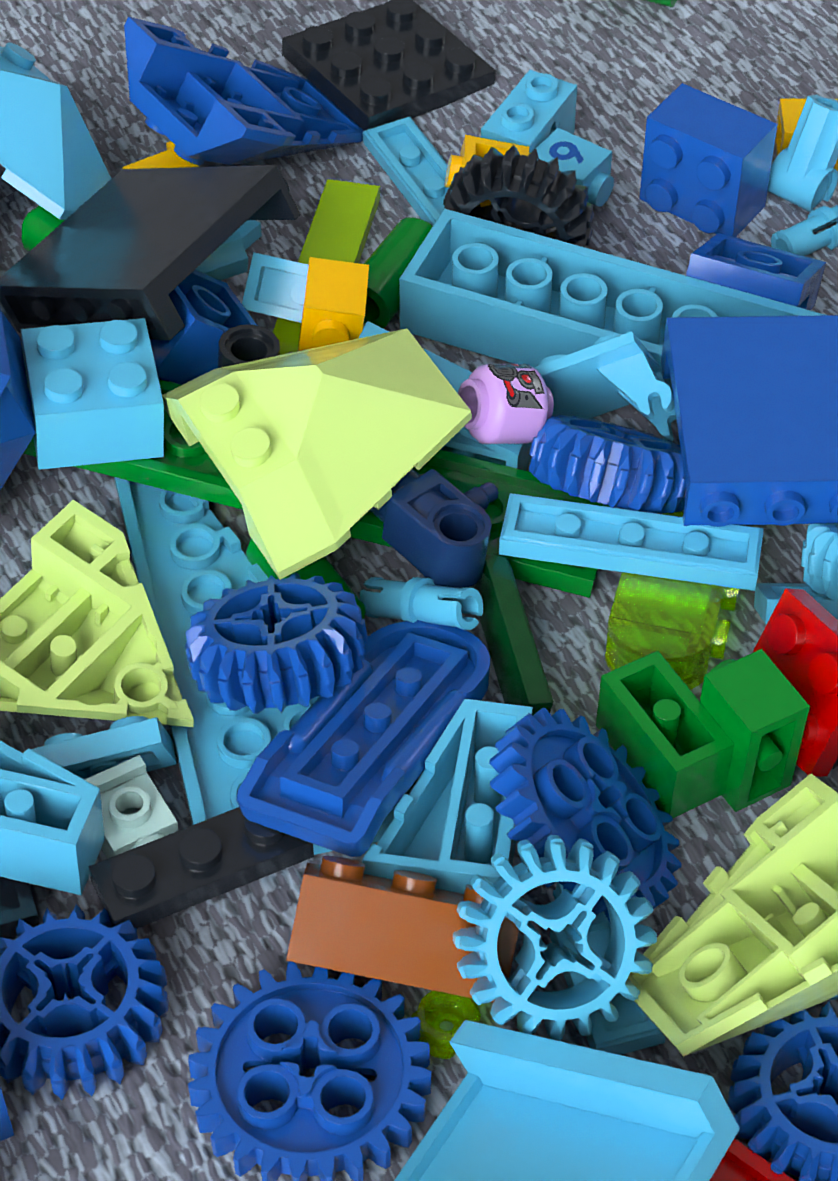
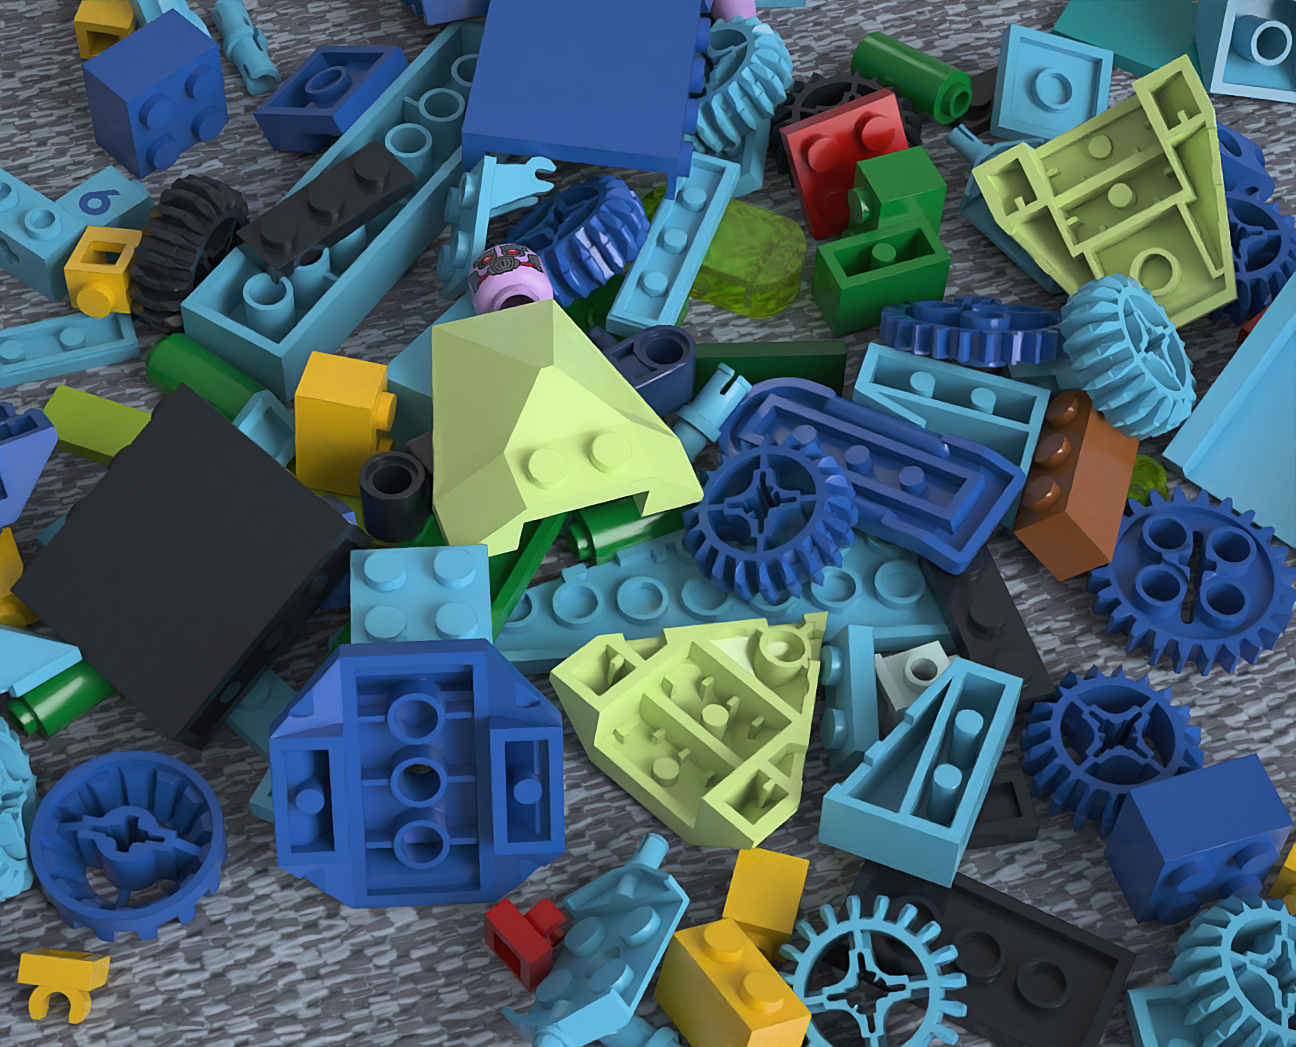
camera: 85 degrees left, 5 degrees up
(577, 274) = (325, 211): none -> black plate

